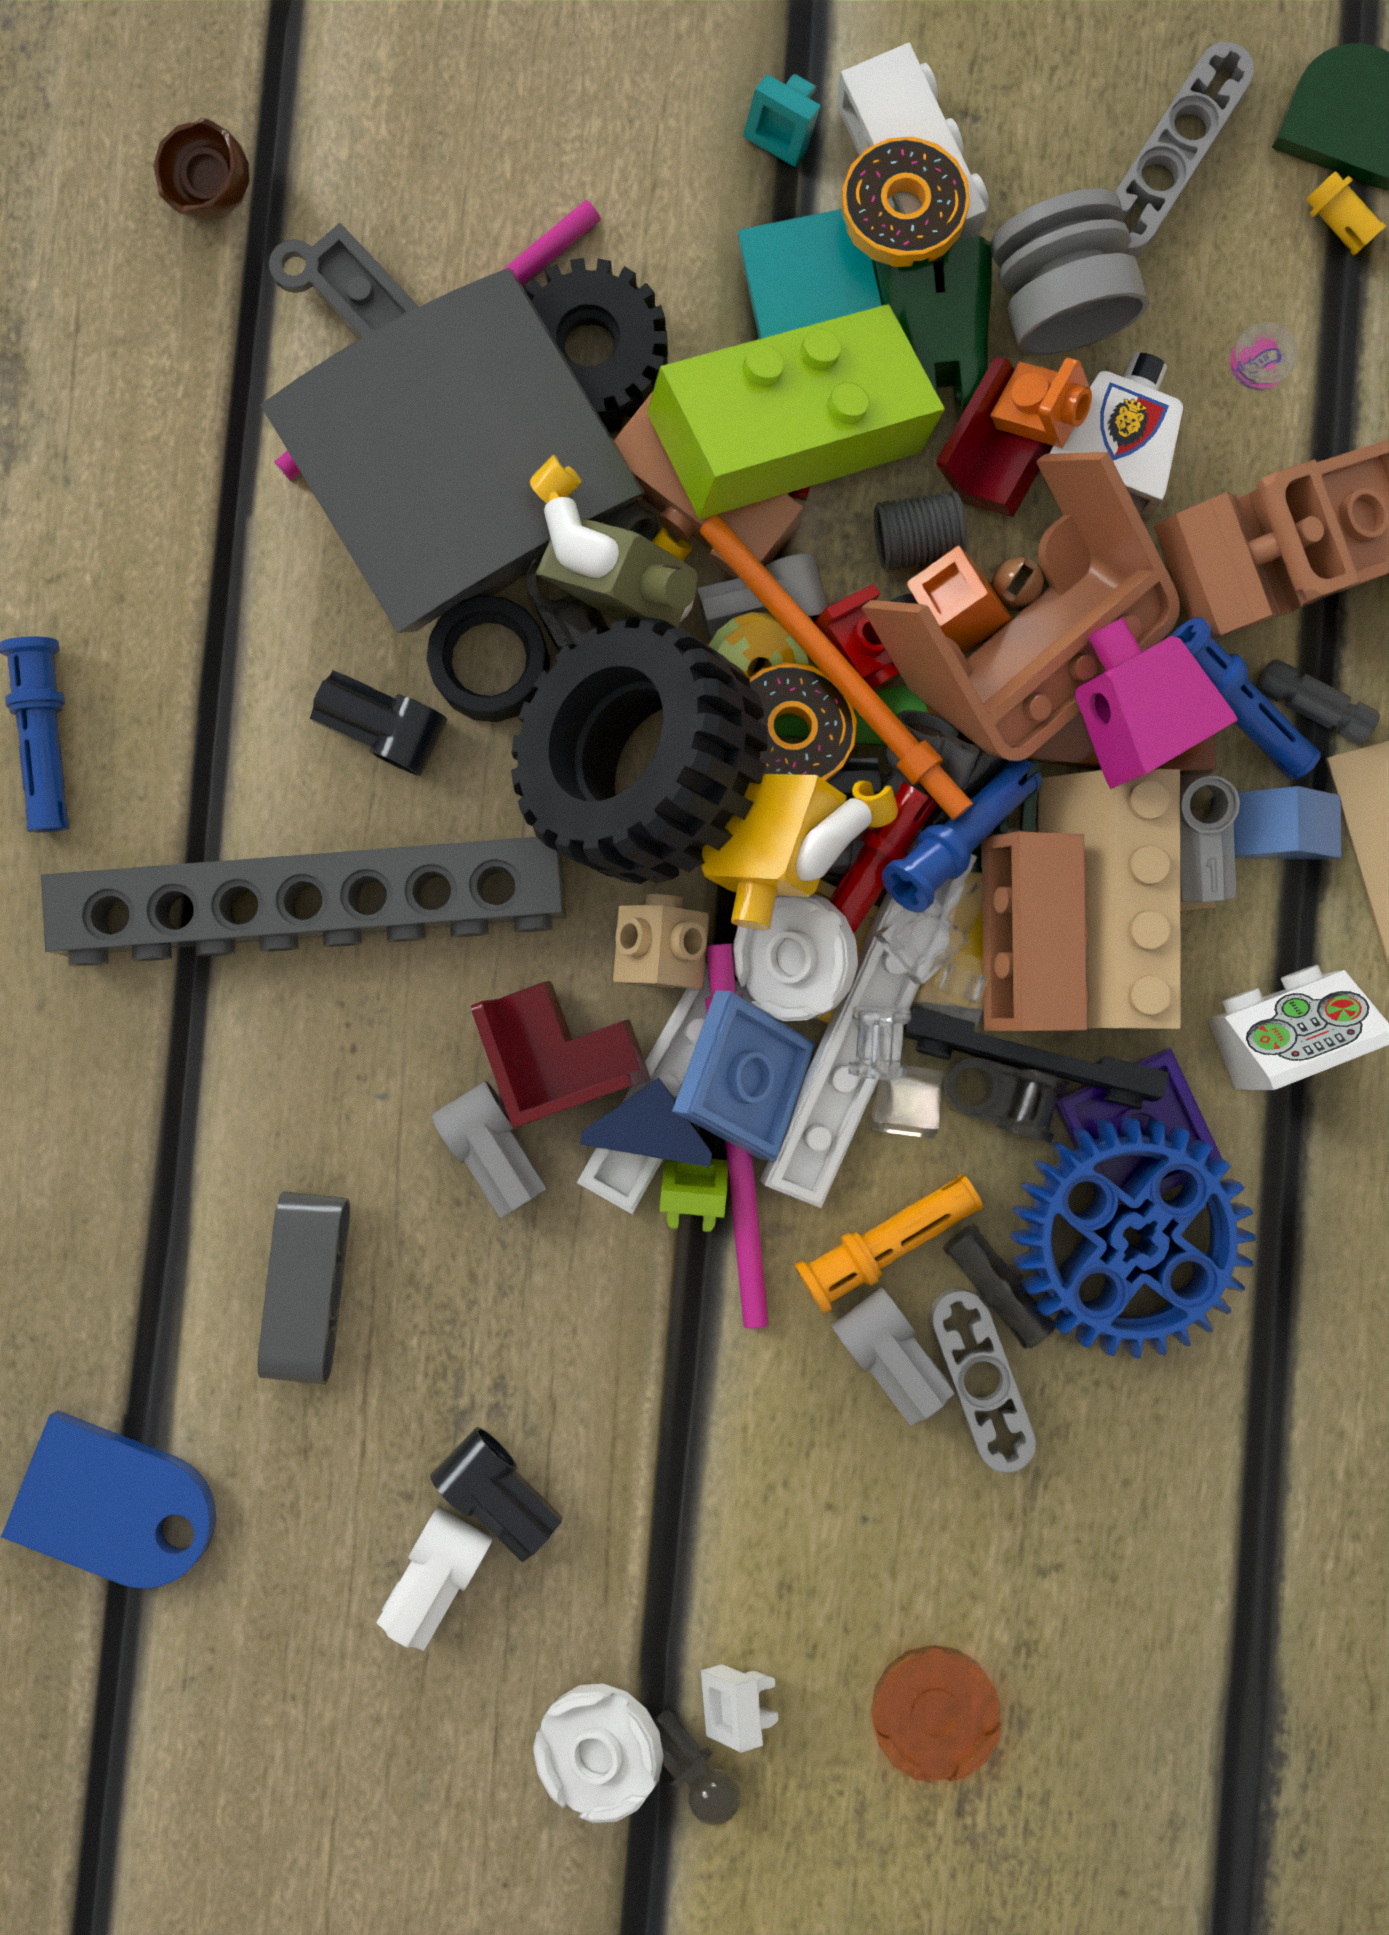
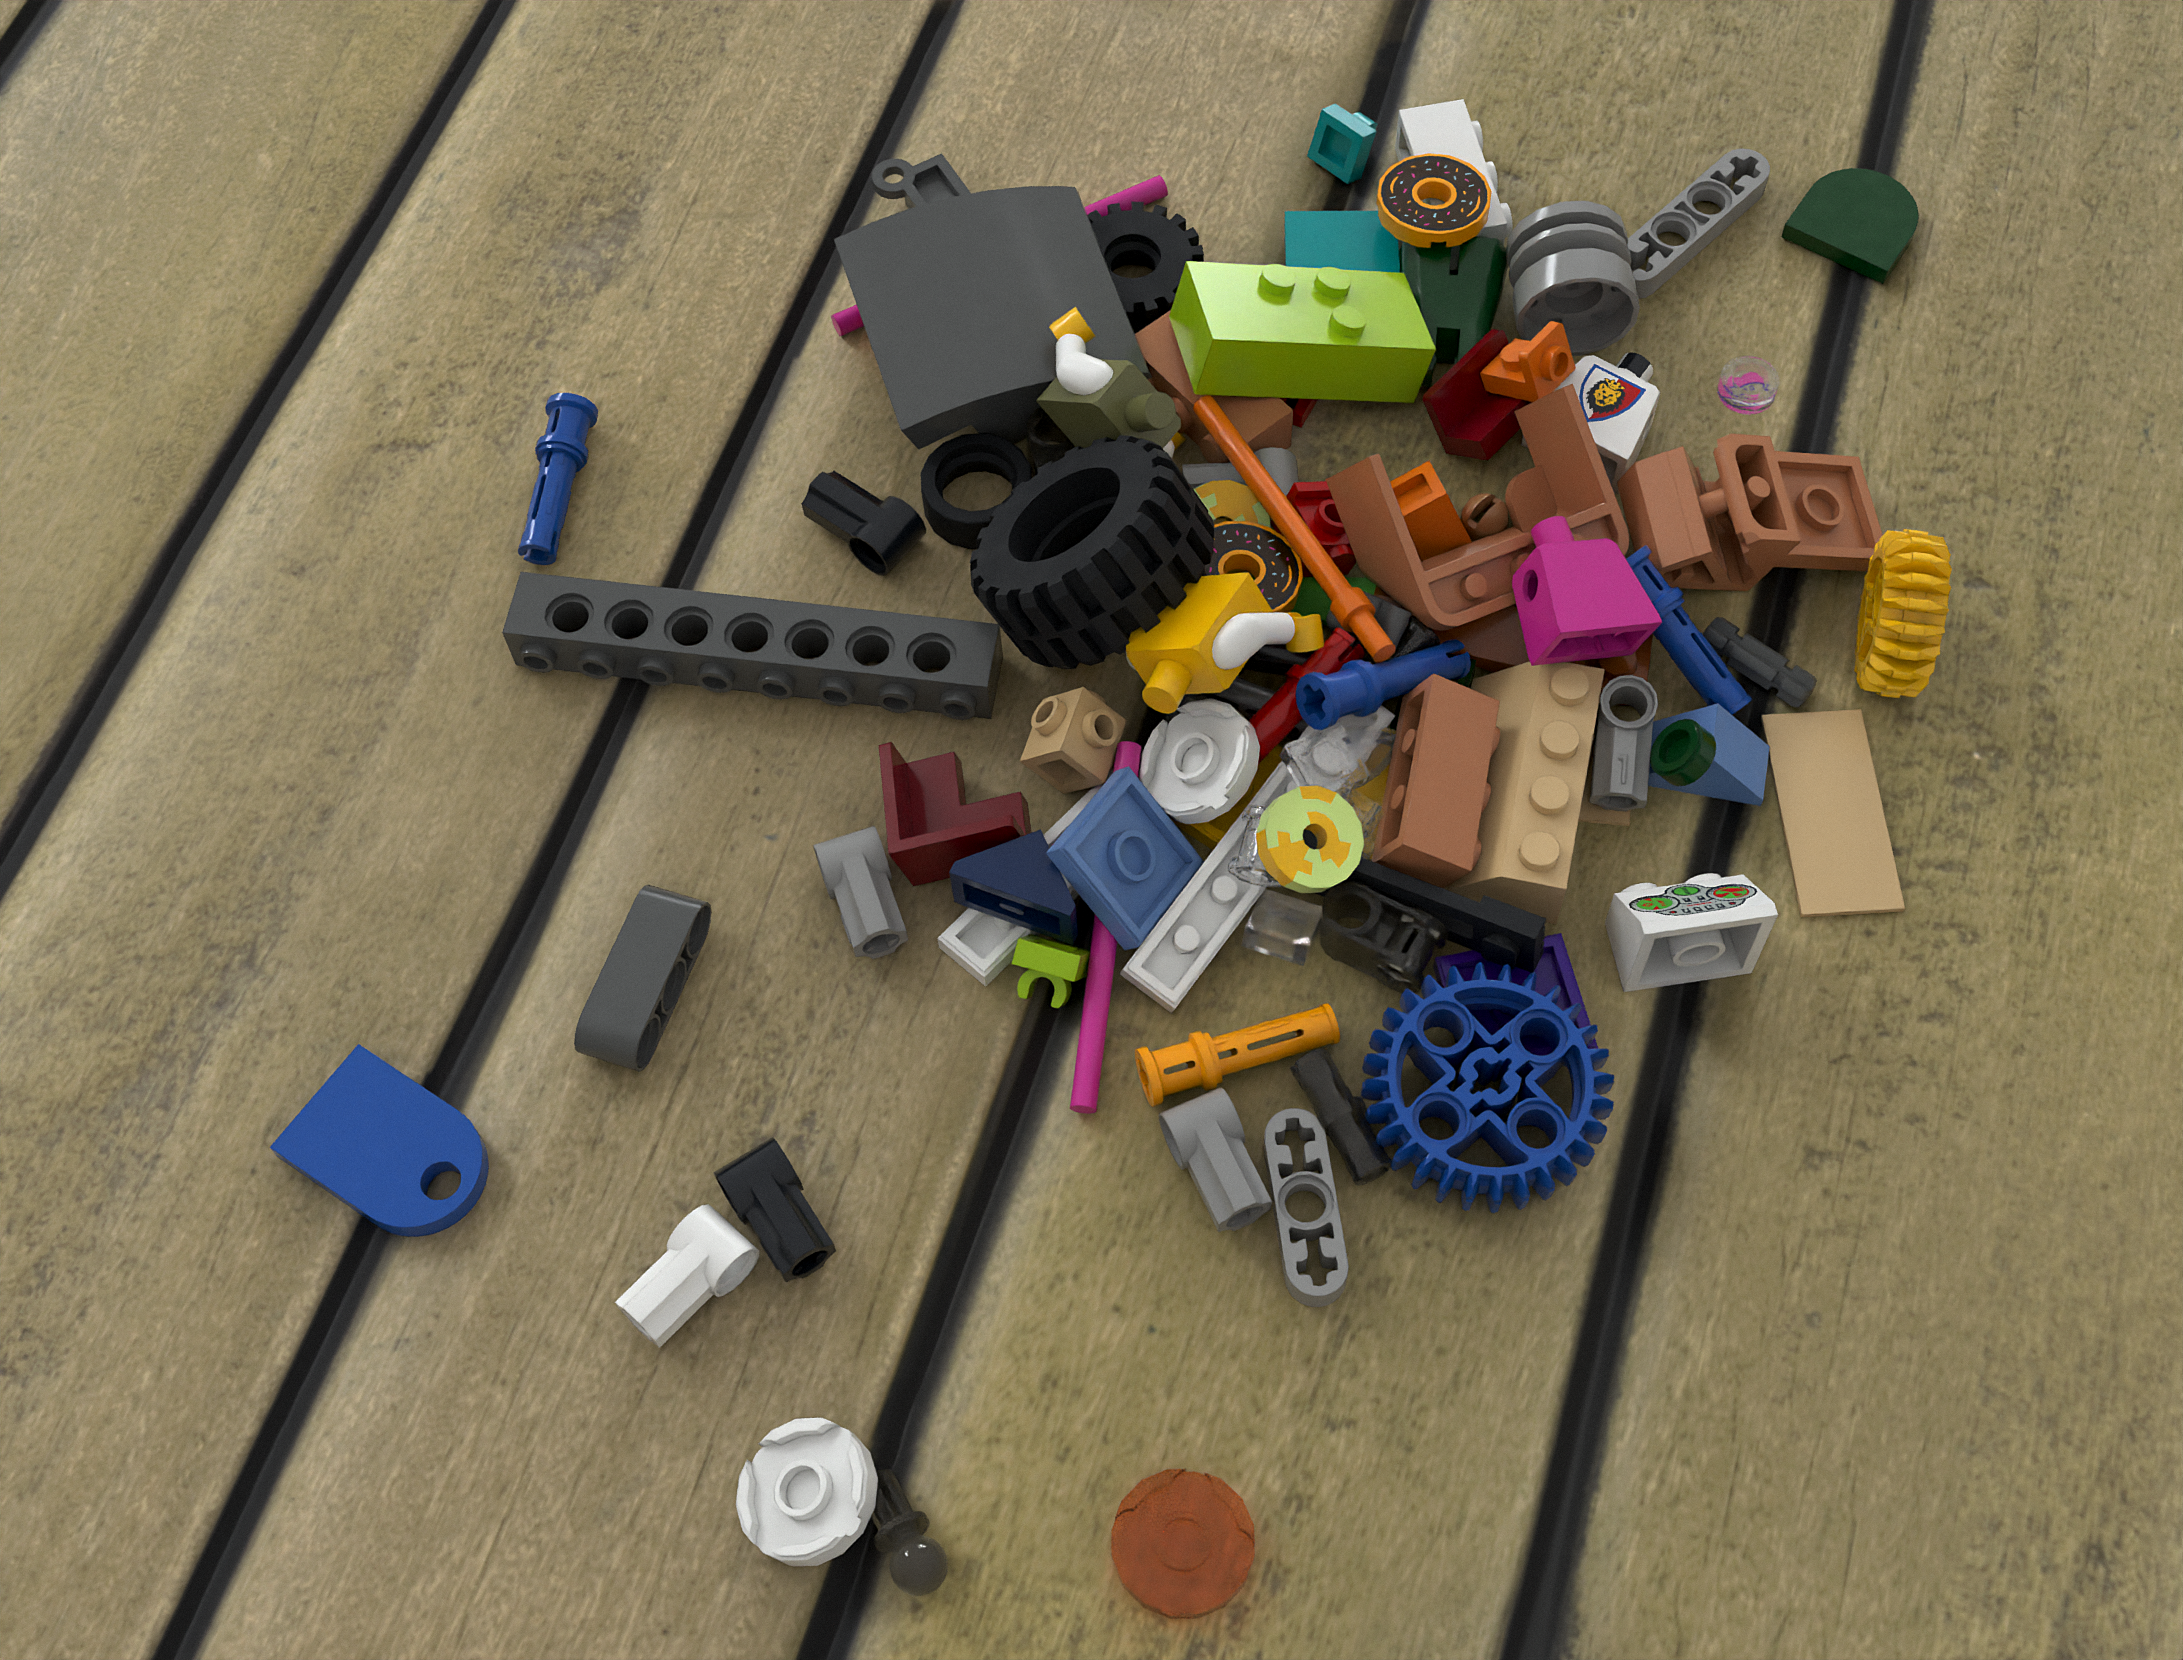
camera: 15 degrees right, 25 degrees down
(201, 170) = (837, 102): reddish brown hair -> none
(733, 1707) = (964, 1473): white tile -> none
(919, 529) = (1400, 447): dark grey piece -> none
(953, 1044) = (1332, 823): none -> piece
(1268, 845) = (1683, 752): none -> dark green tile
(1344, 212) = (1838, 287): yellow pin -> none

